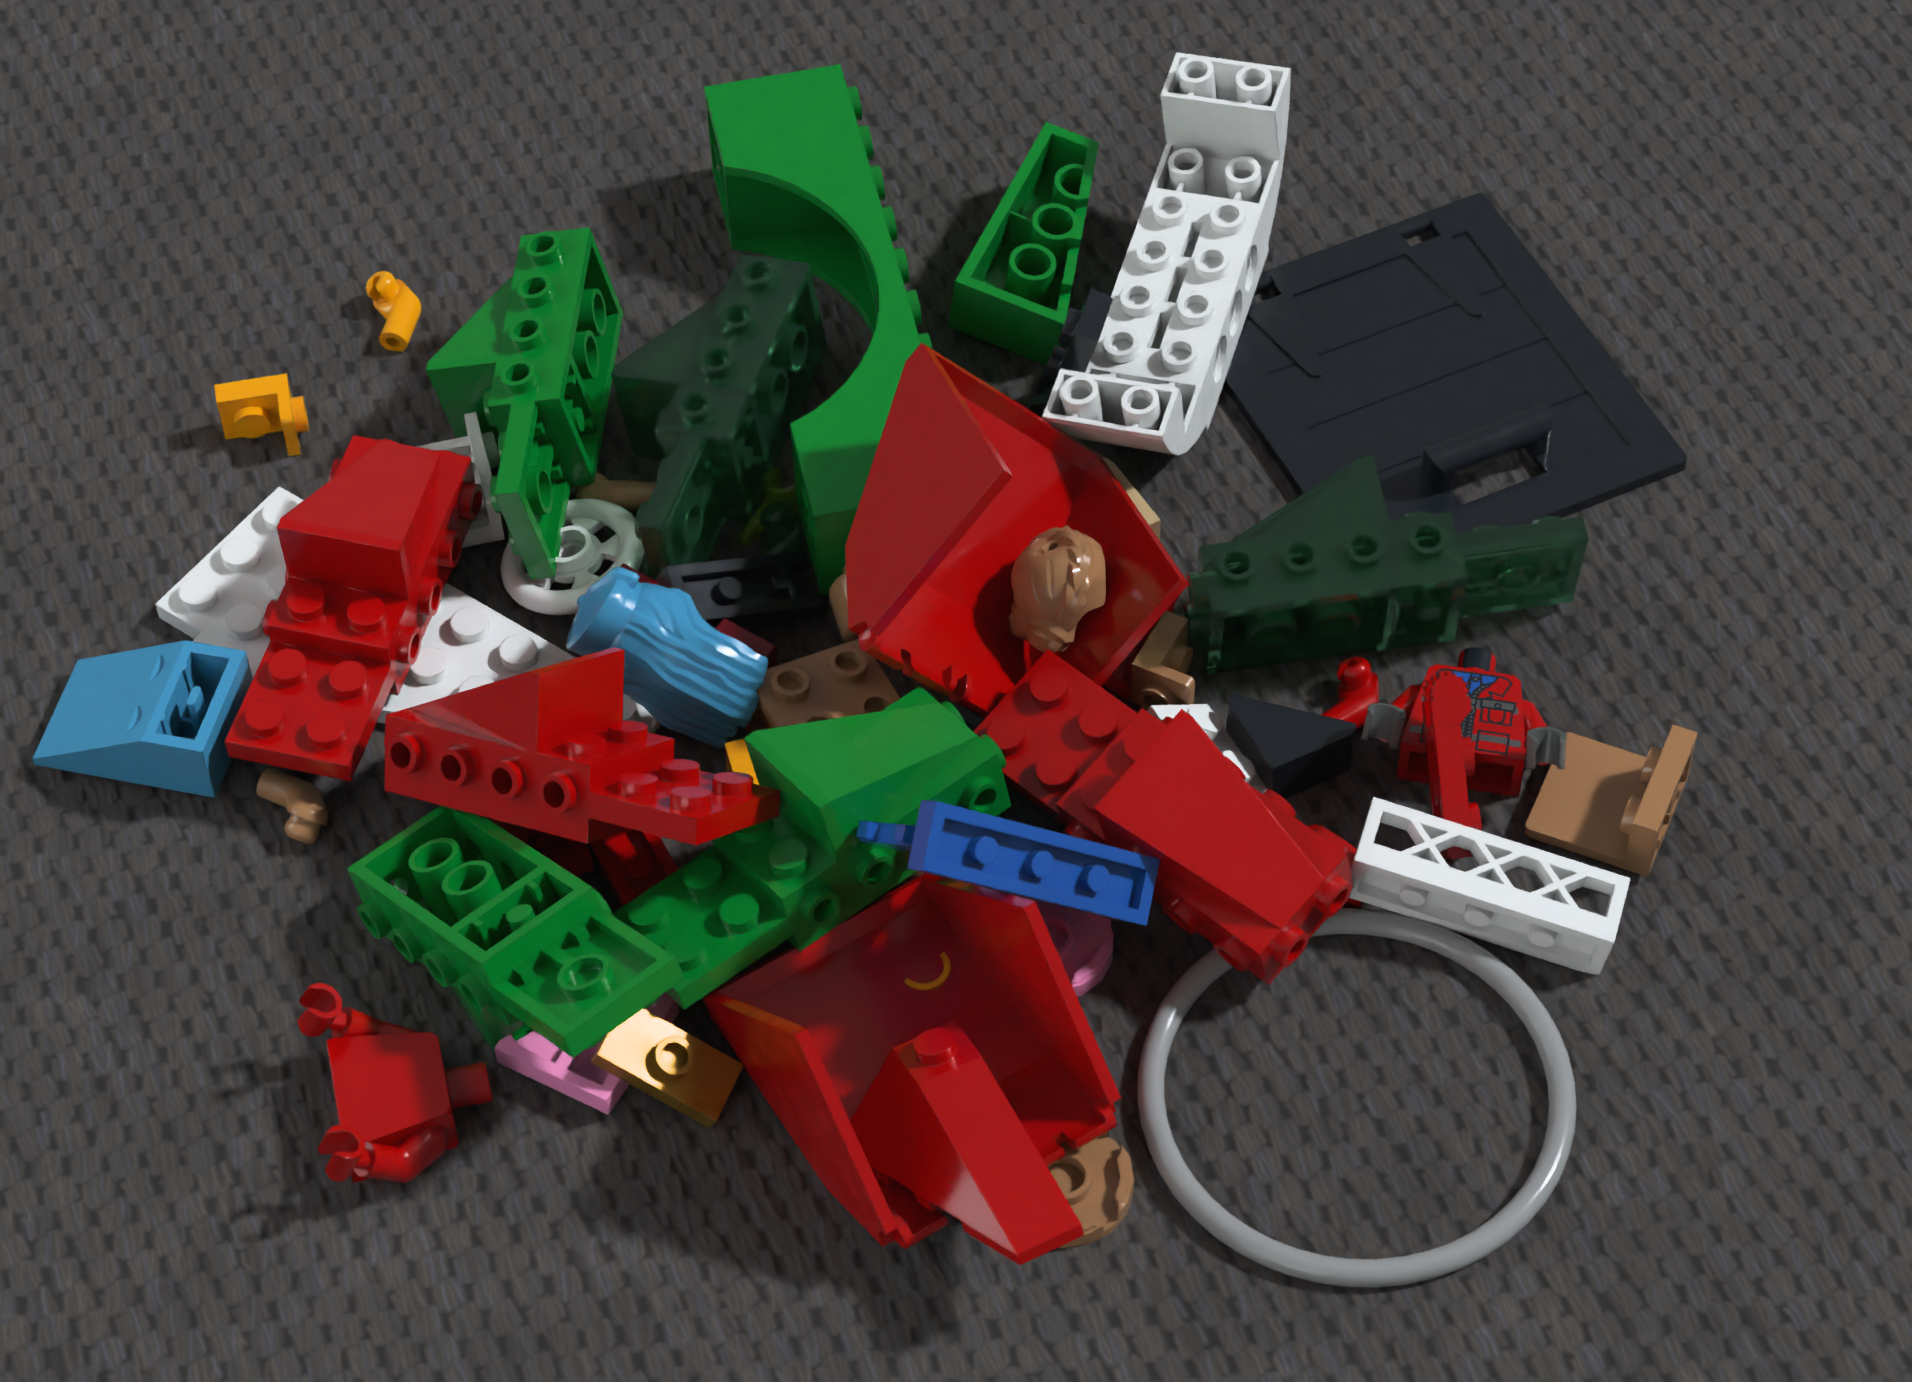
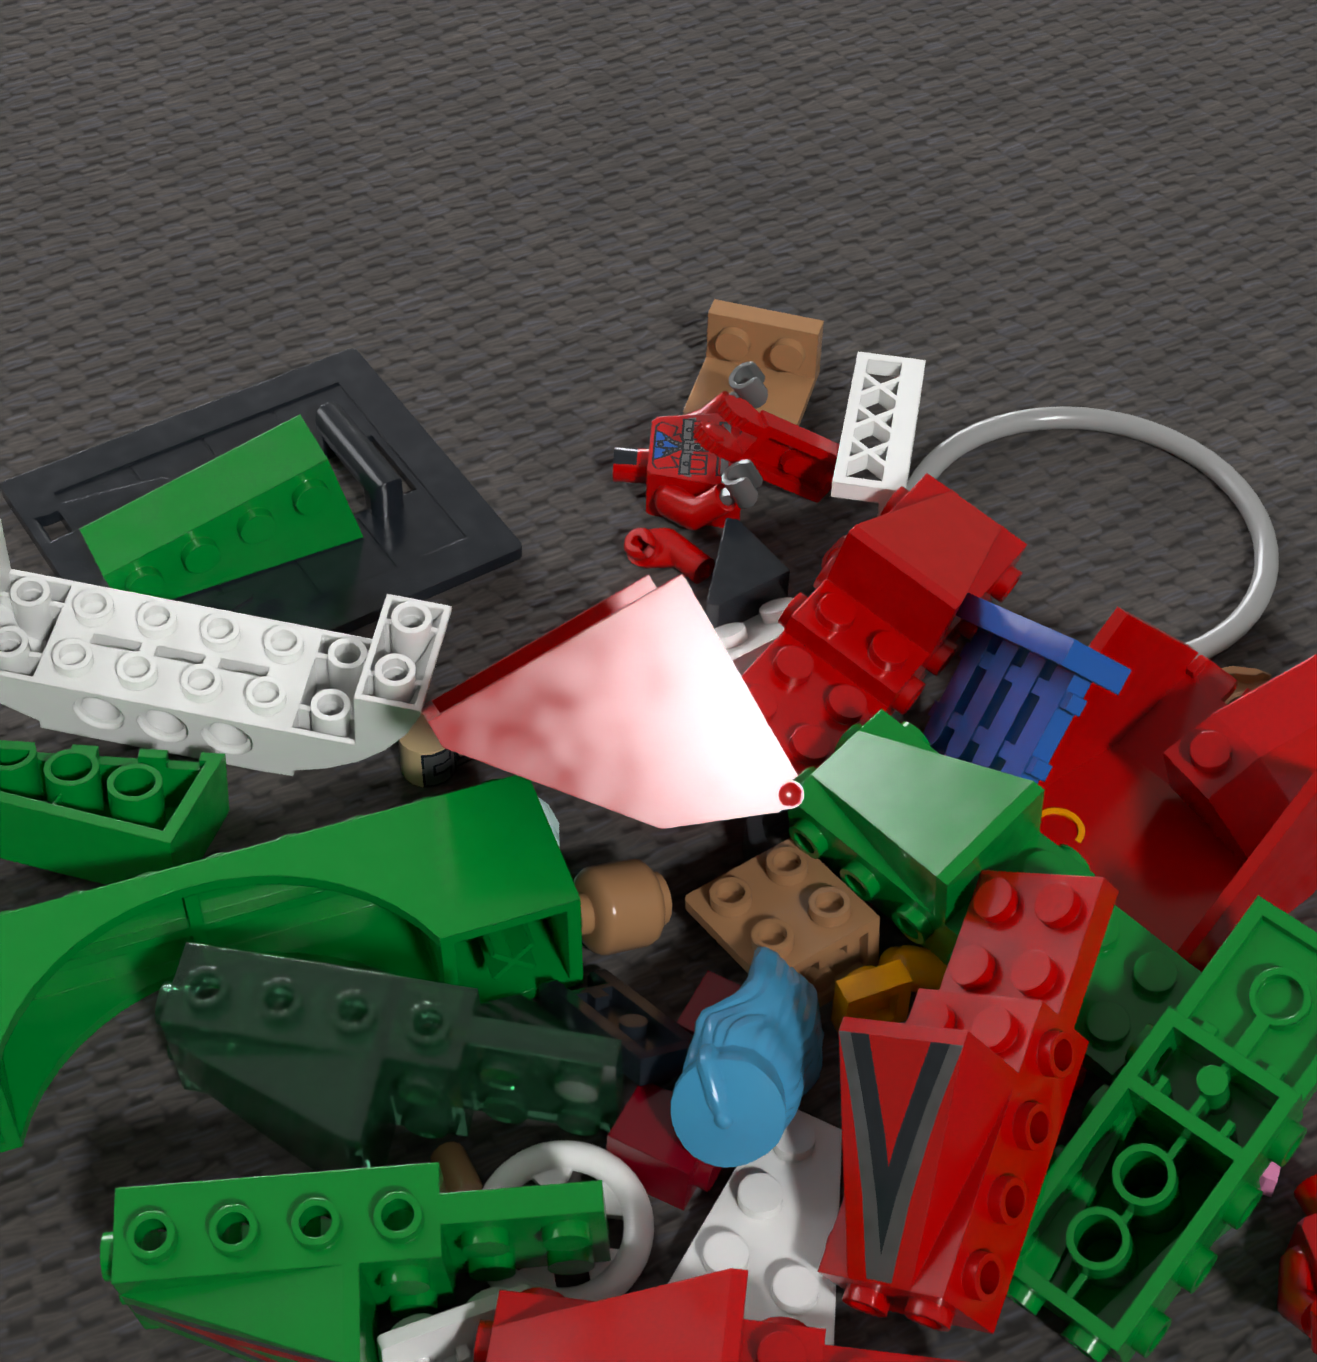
camera: 100 degrees left, 5 degrees down
(1081, 335) = (294, 728): black hinge -> none
(1343, 557) = (556, 509): clear green wedge -> none
(1380, 336) = (226, 518): none -> green wedge

